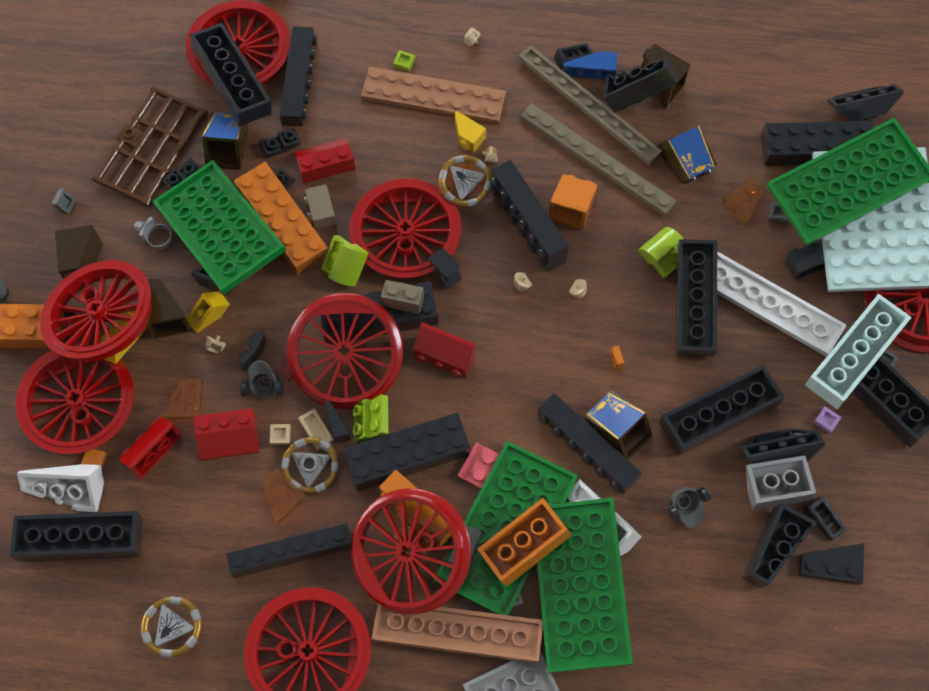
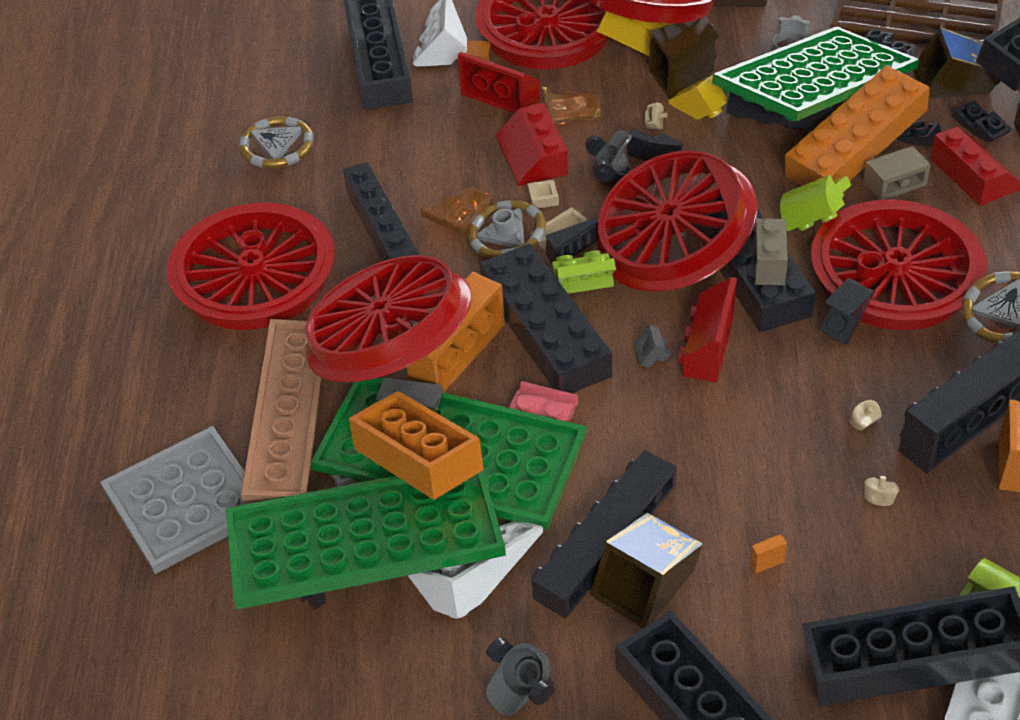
camera: 85 degrees right, 20 degrees down
(445, 390) = (651, 346): none -> dark grey tile

